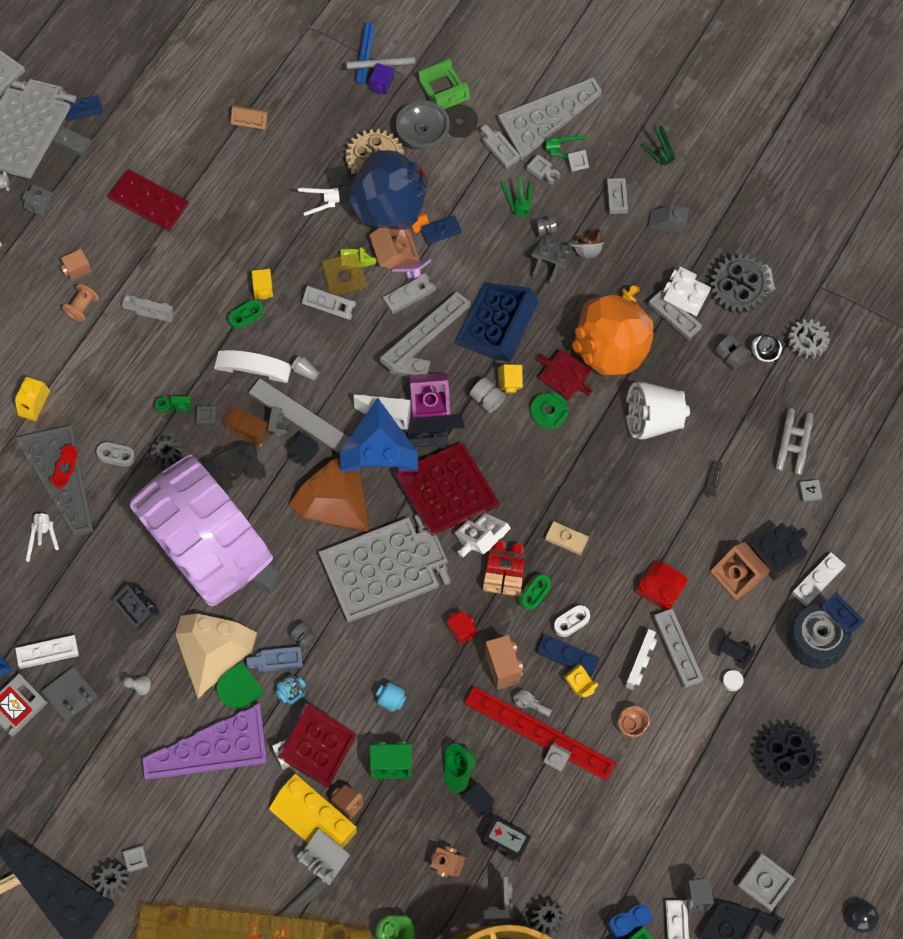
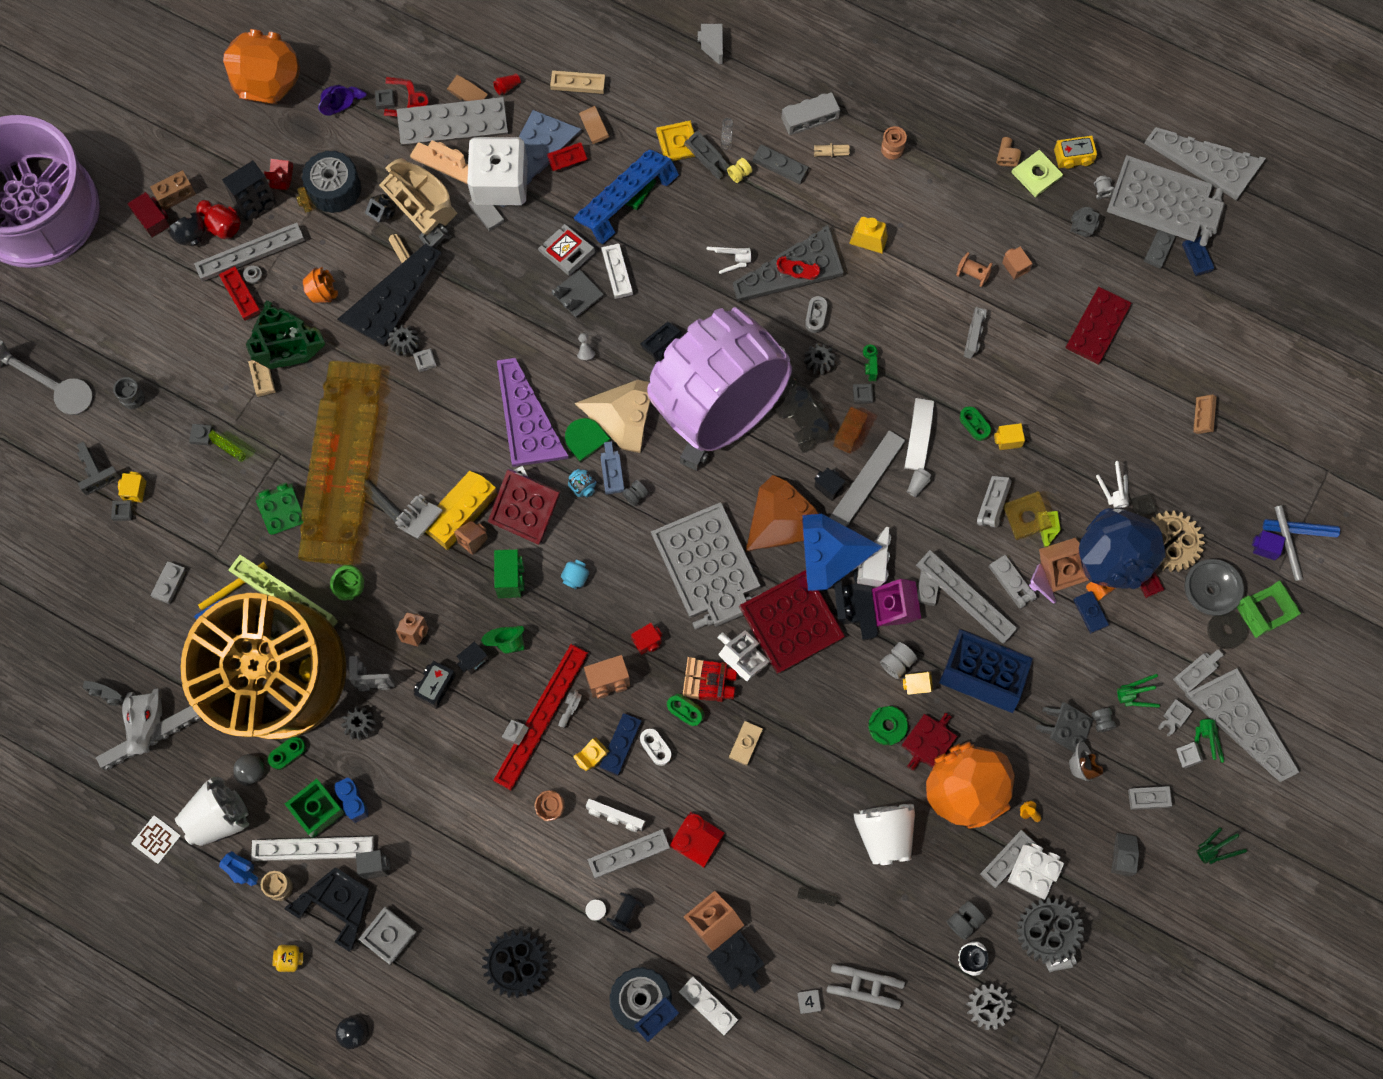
camera: 90 degrees right, 5 degrees up
(275, 419) = (856, 455): dark grey bracket -> none

